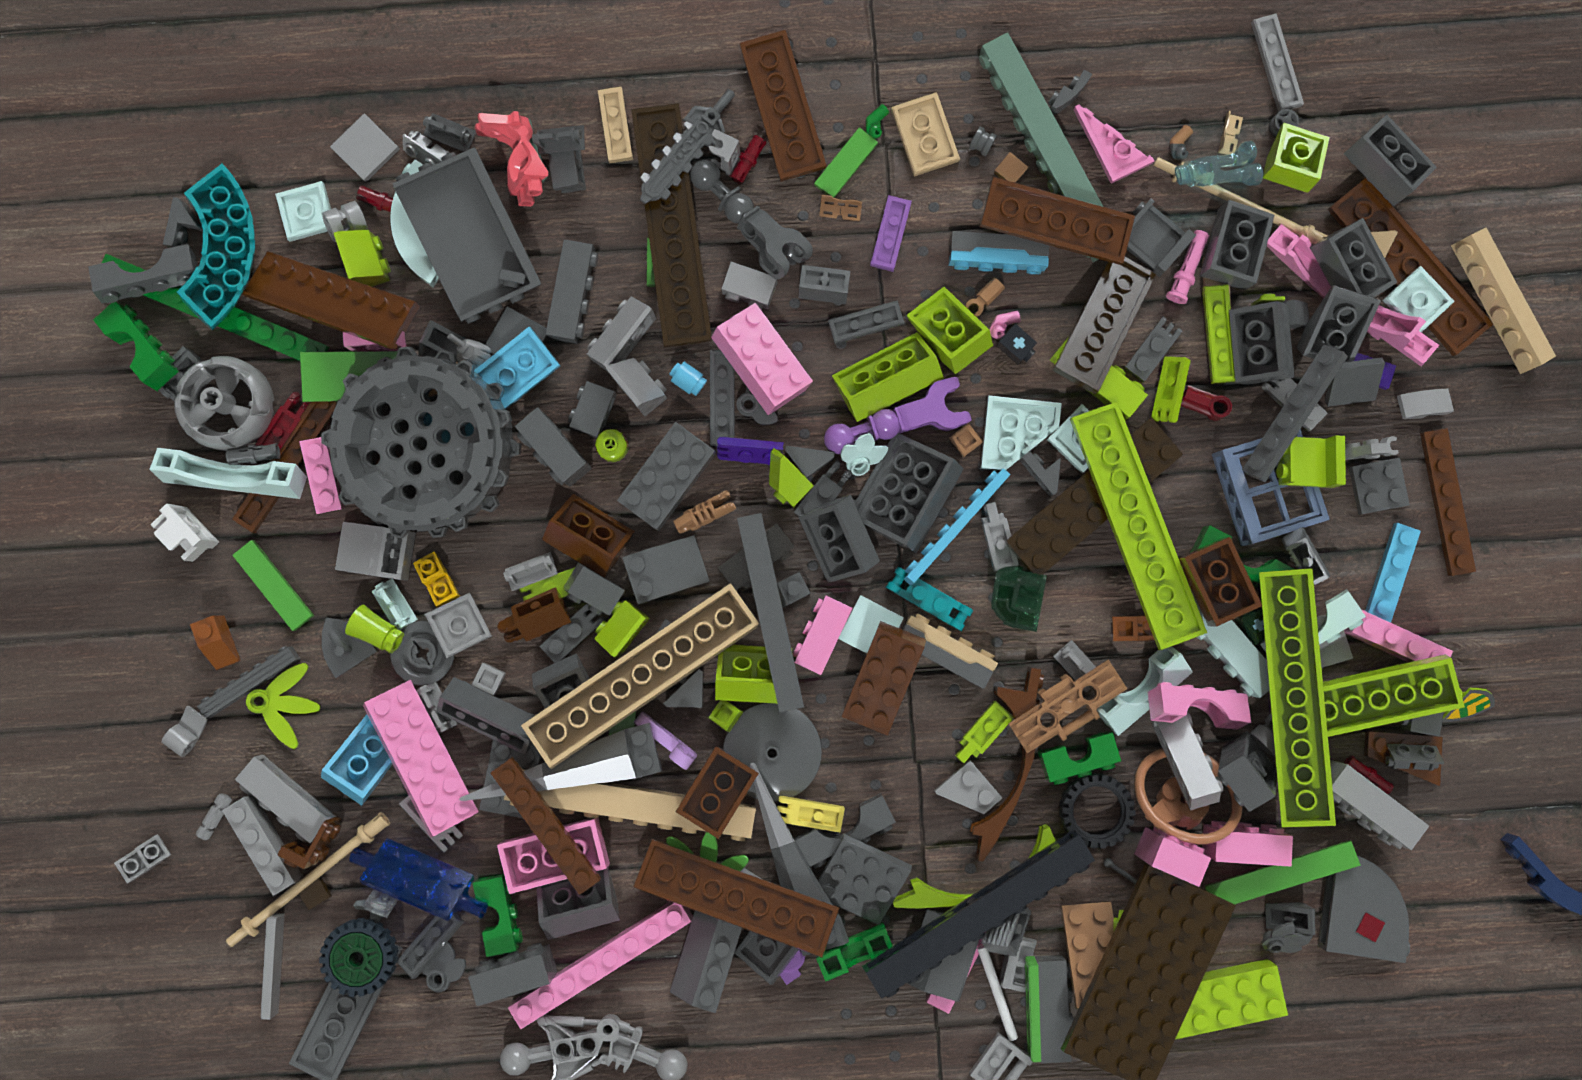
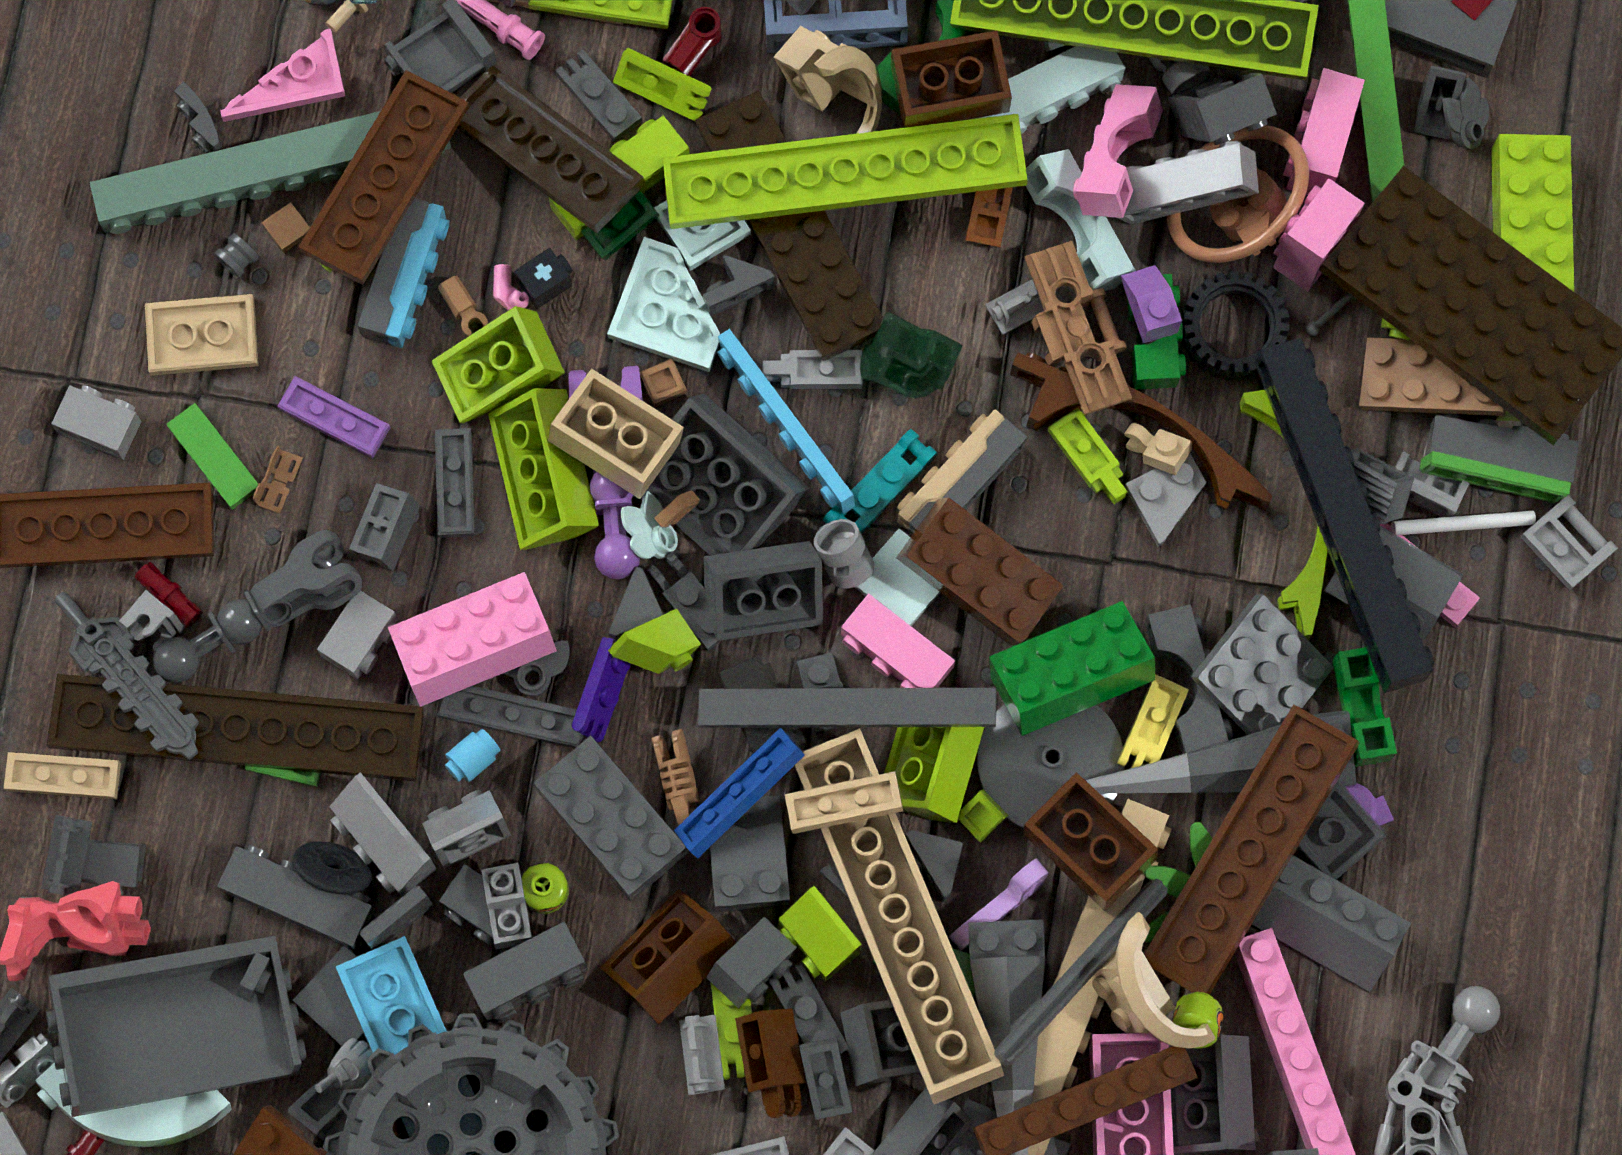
camera: 80 degrees left, 10 degrees down
(531, 653) = (825, 1078): none -> dark grey plate
(568, 356) = (396, 918): none -> dark grey tile
(585, 296) = (314, 864): none -> black wheel
(591, 424) = (506, 905): none -> light grey slope
(616, 886) = (1199, 1009): none -> lime head
(622, 846) = (1137, 994): none -> tan piece
(627, 804) = (1077, 975): none -> dark grey axle
(699, 555) = (739, 792): none -> blue plate
(704, 625) = (843, 802): none -> tan plate
(834, 753) = (1072, 668): none -> green brick
(849, 82) = (97, 421): none -> light grey brick
(873, 124) = (161, 402): green arm -> none
(875, 585) = (844, 553): none -> light grey wheel
(879, 470) = (677, 509): none -> medium nougat tile
(916, 416) = (615, 433): none -> tan brick
(997, 780) = (1160, 451): none -> tan plate
(1065, 388) = (623, 226): none -> dark green plate
(1096, 752) = (1152, 303): none -> medium lavender slope
(1206, 493) = (821, 69): none -> tan piece
(1252, 625) = (1022, 54): clear green brick -> none

